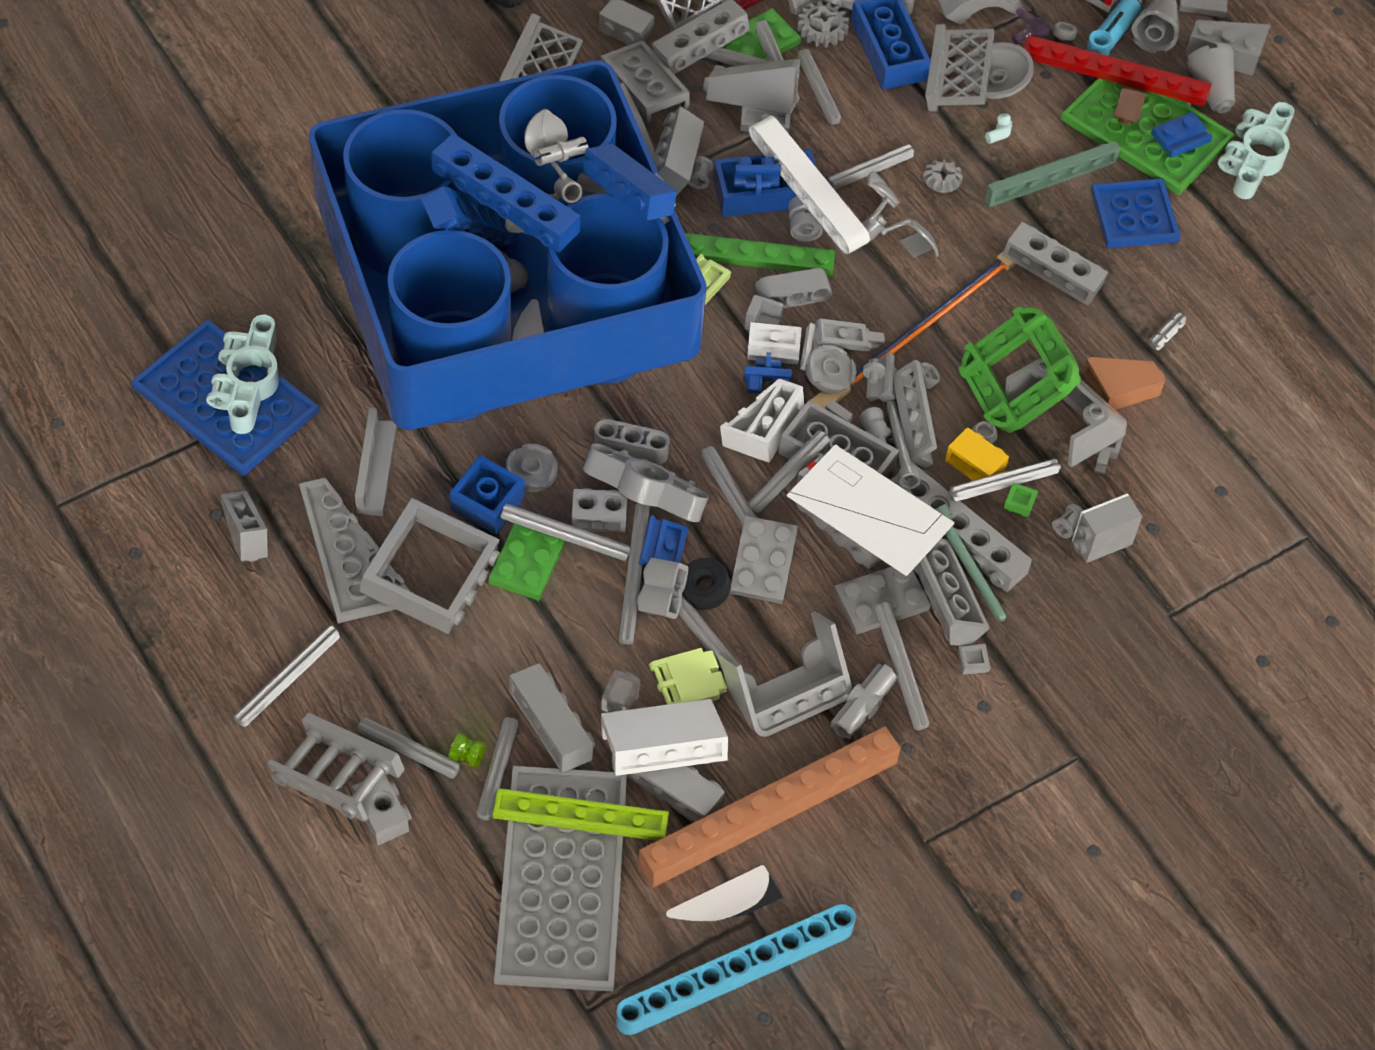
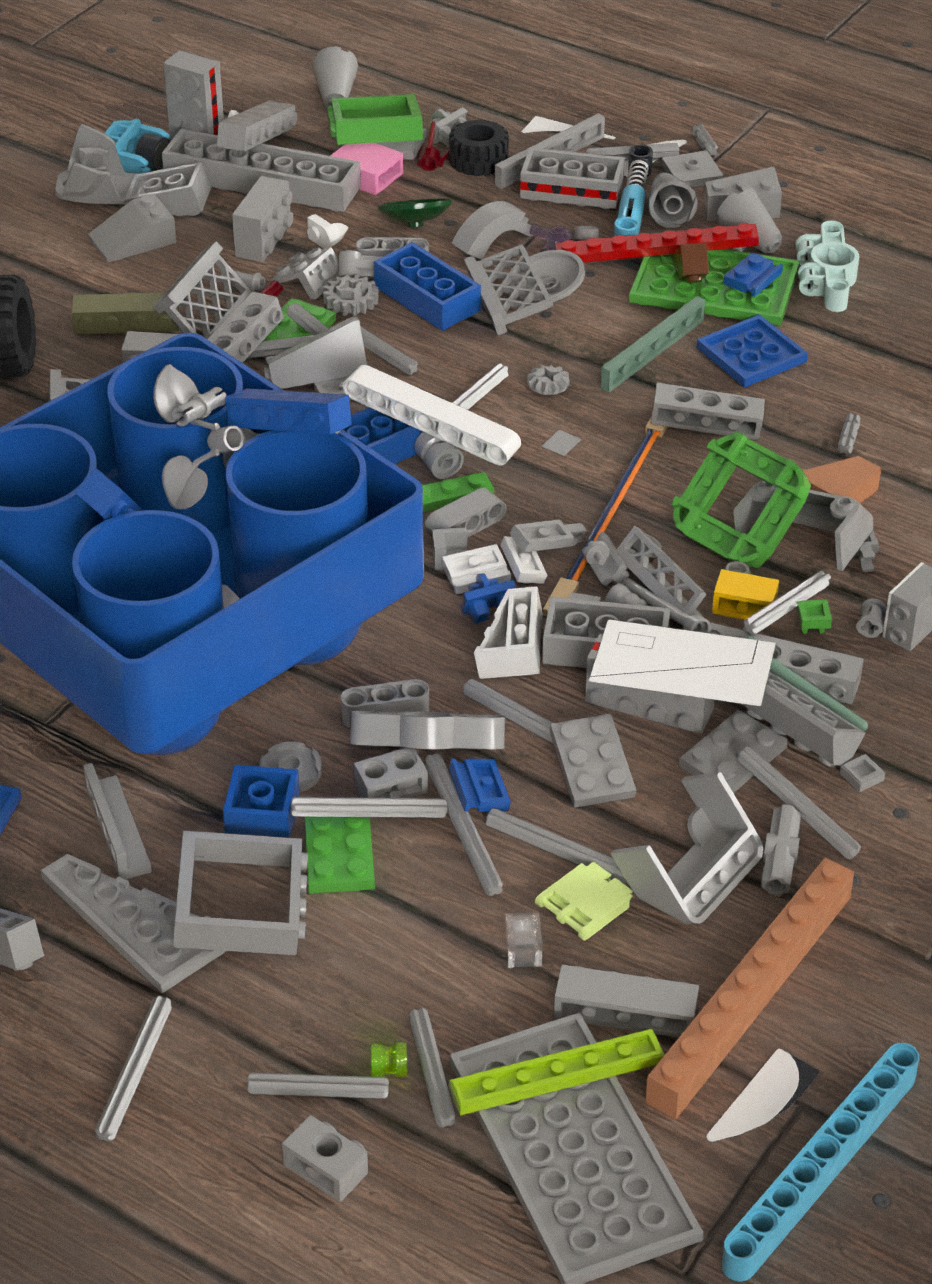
camera: 20 degrees left, 15 degrees down
(339, 742) = (251, 1102): light grey fence -> none
(505, 192) = (163, 458): blue brick -> none
(551, 717) = (464, 989): light grey brick -> none
(662, 588) = (506, 820): light grey brick -> none
(665, 736) = (603, 956): white panel -> none
(715, 594) = (547, 786): black tyre -> none
(757, 176) = (375, 423): blue hips -> none
(788, 471) = (570, 666): light grey axle -> none
(830, 369) = (550, 569): light grey tile -> none
(875, 222) = (490, 405): light grey plant -> none
(1002, 129) = (580, 326): light aqua arm -> none

